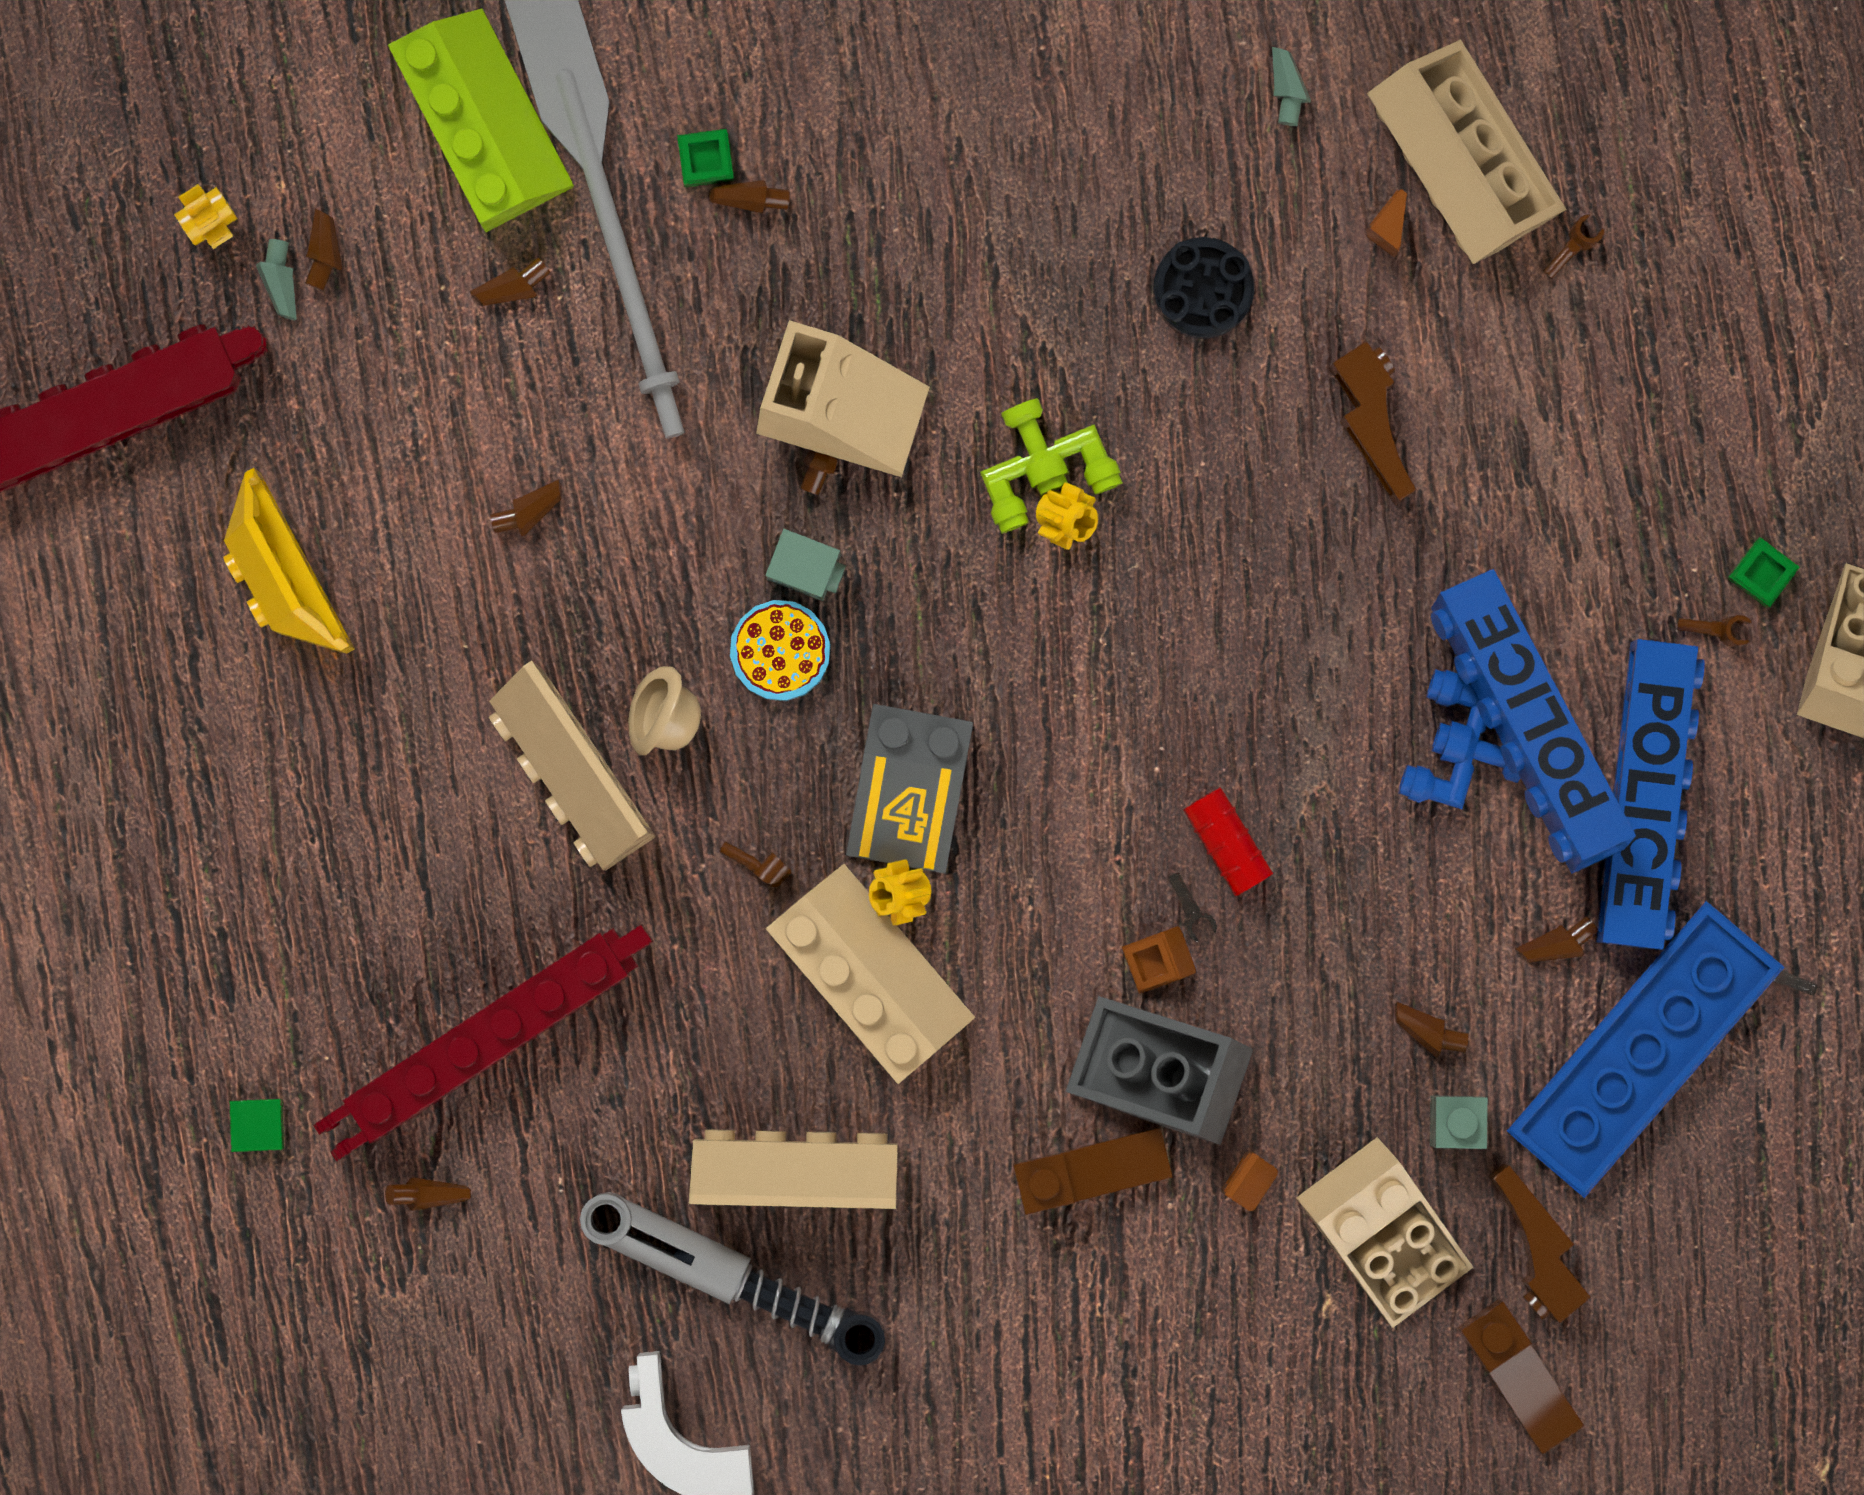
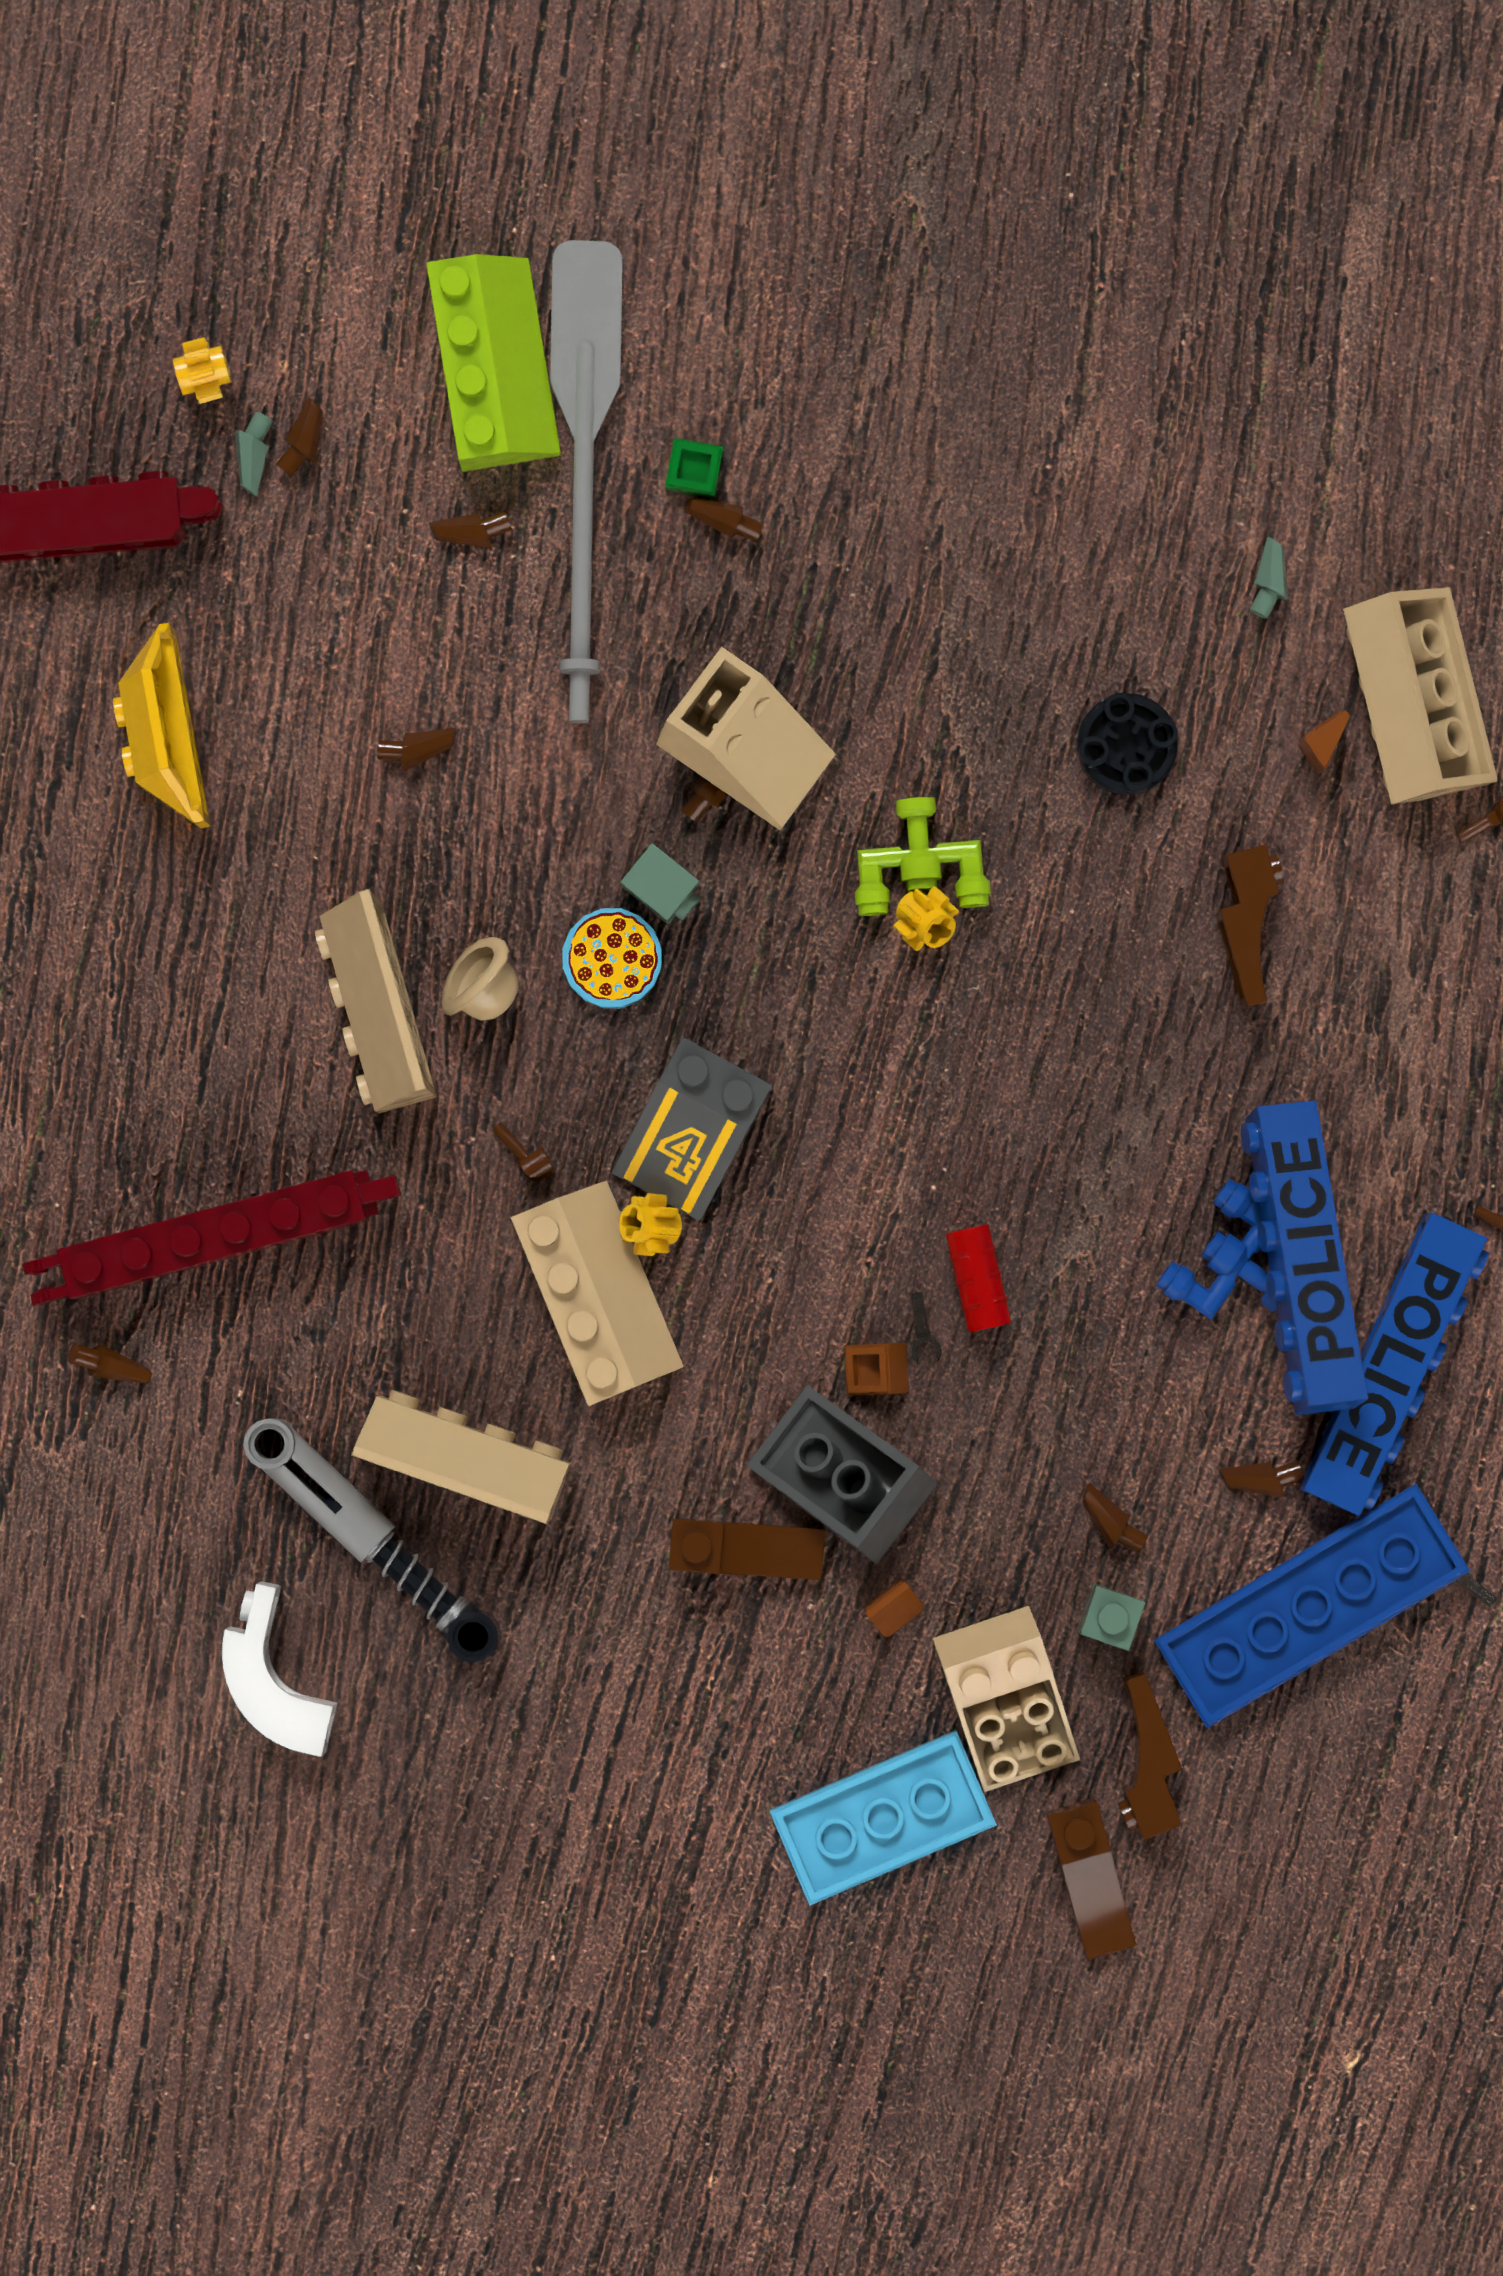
camera: 25 degrees right, 0 degrees up
(1304, 1383) = (882, 1817): none -> medium azure tile

